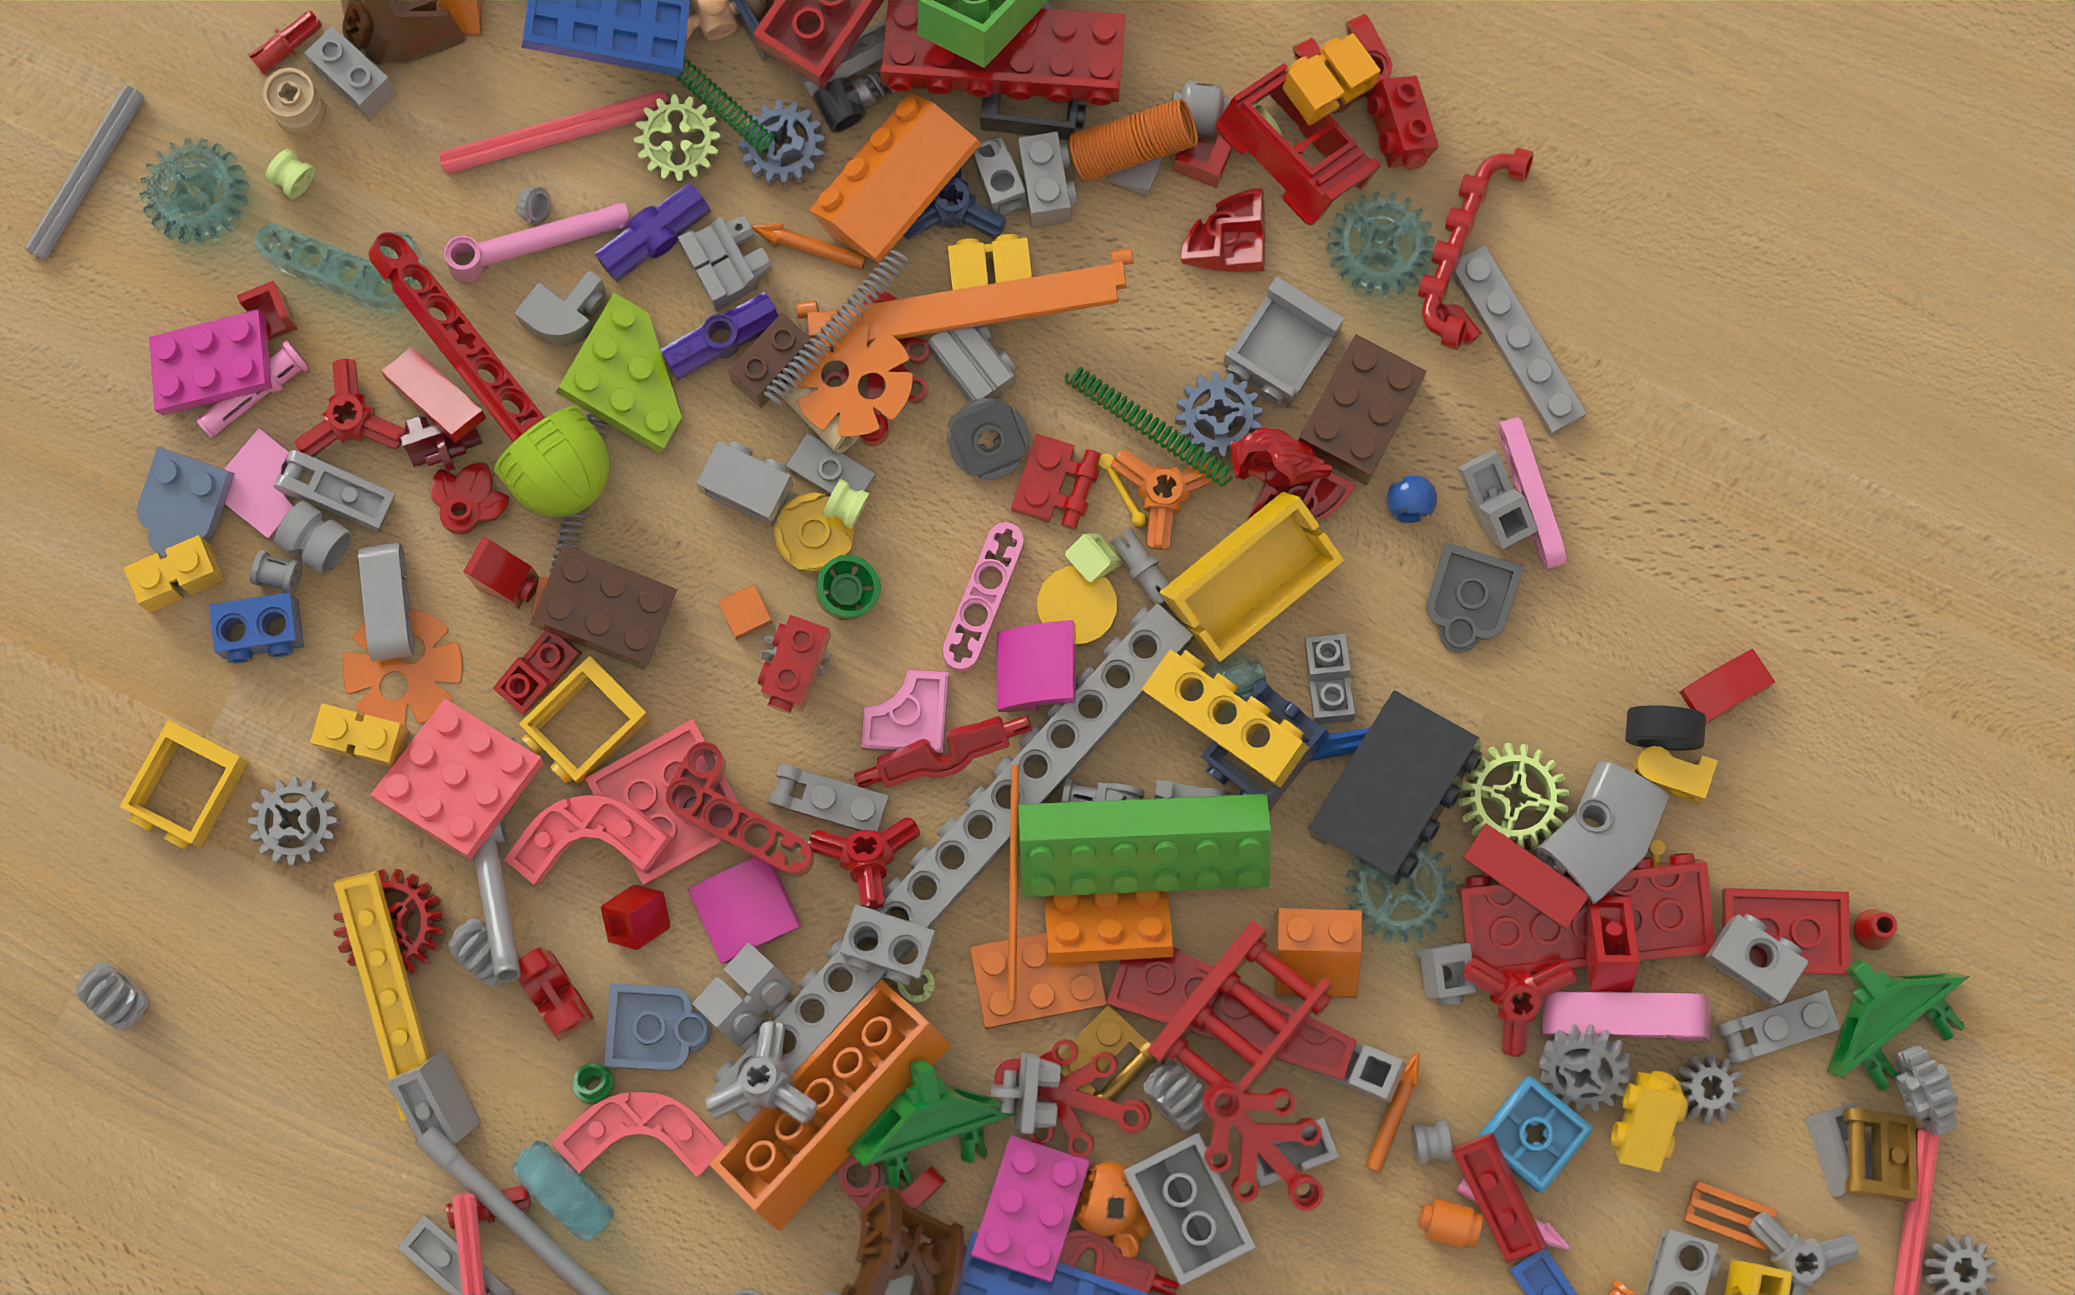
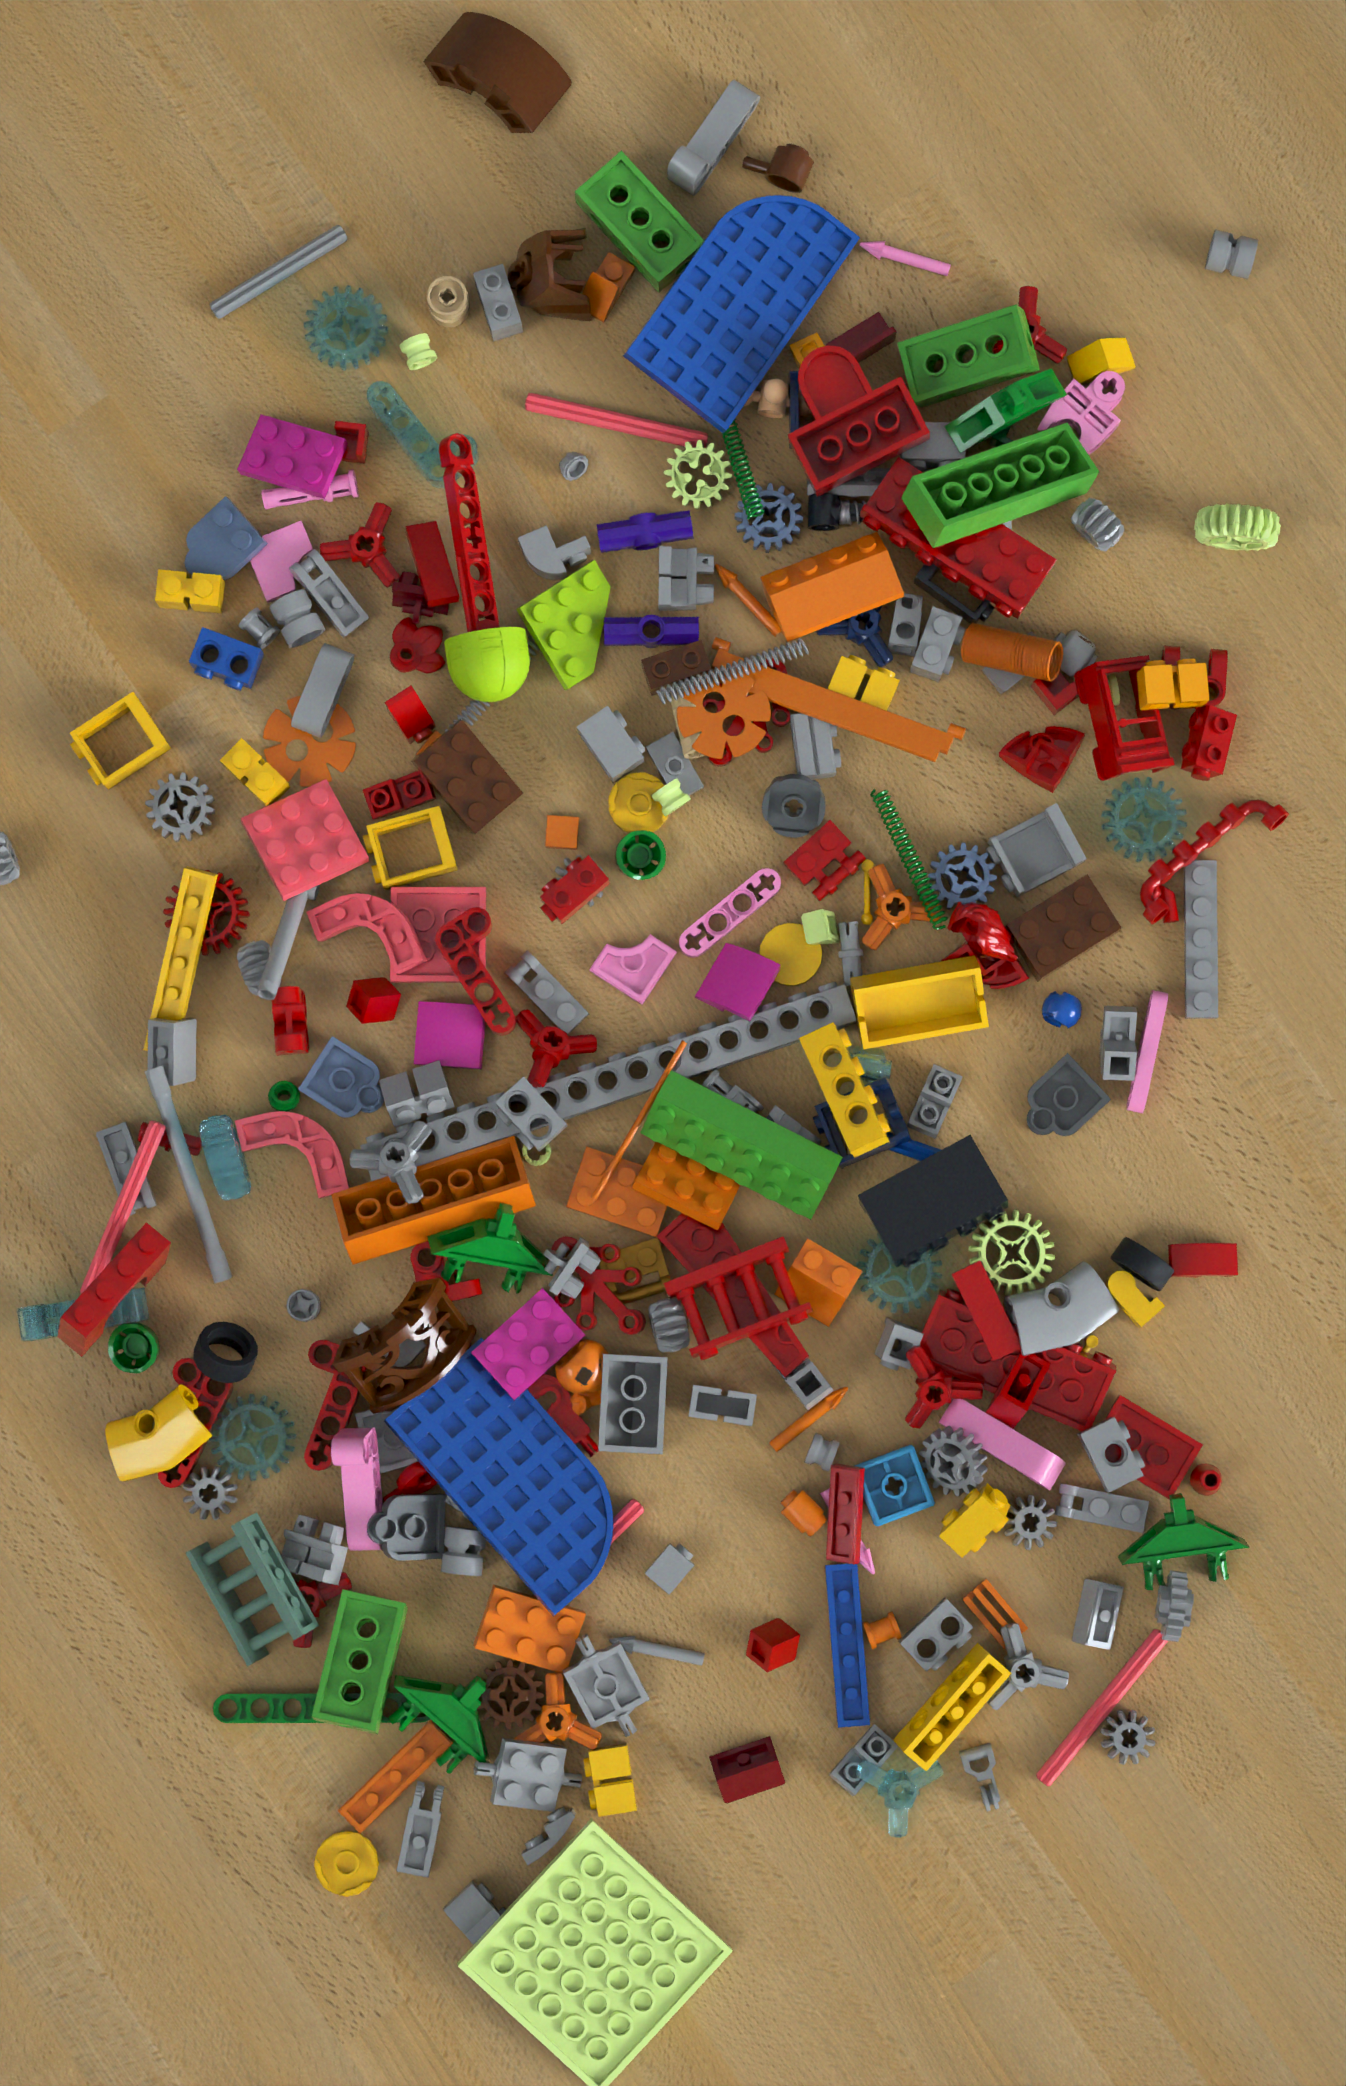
camera: 30 degrees right, 5 degrees up
(284, 42) = (465, 254): red axle -> none
(531, 240) = (561, 491): bright pink piece -> none
(964, 745) = (625, 1001): red piece -> none
(1257, 1138) = (704, 1383): red plant -> none
(1892, 1155) = (1125, 1637): pearl gold plate -> none

